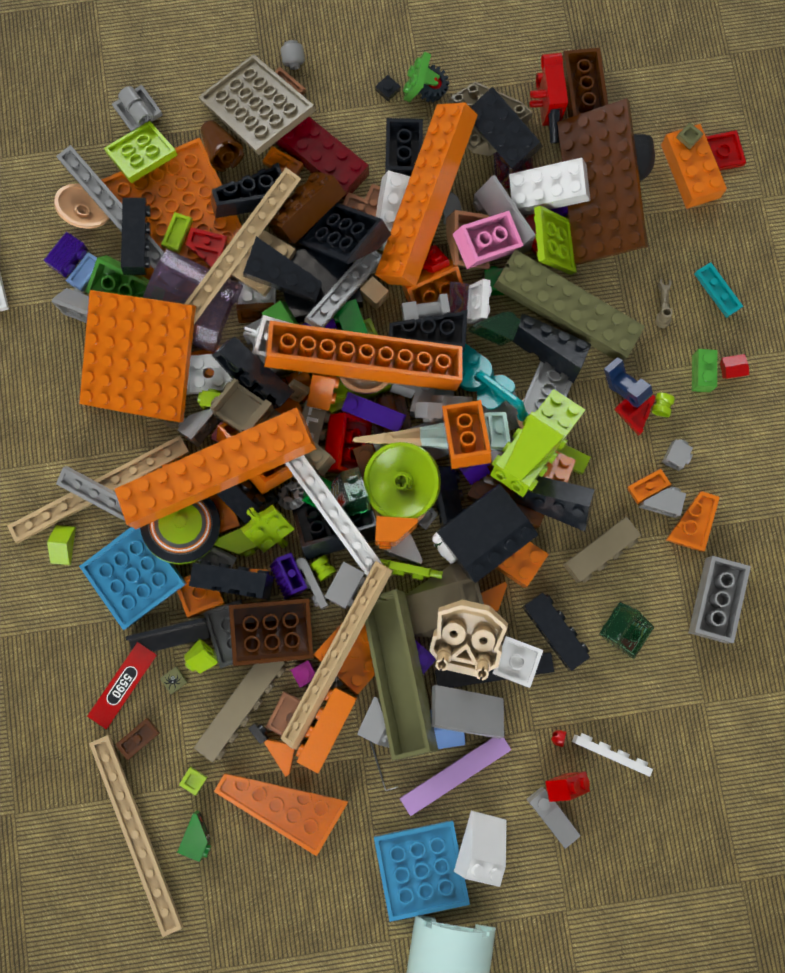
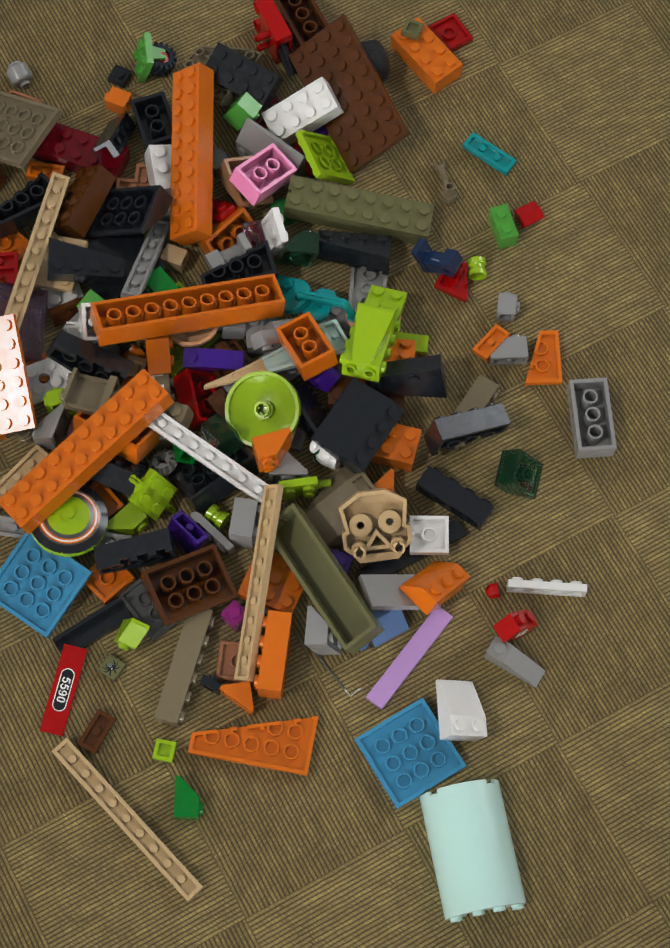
camera: 20 degrees left, 10 degrees down
(361, 149) = (116, 134): none -> black panel
(376, 113) = (118, 100): none -> orange brick
(491, 164) = (241, 109): none -> bright green brick
(504, 715) = (435, 585): none -> orange slope
(593, 569) = (466, 427): none -> wedge

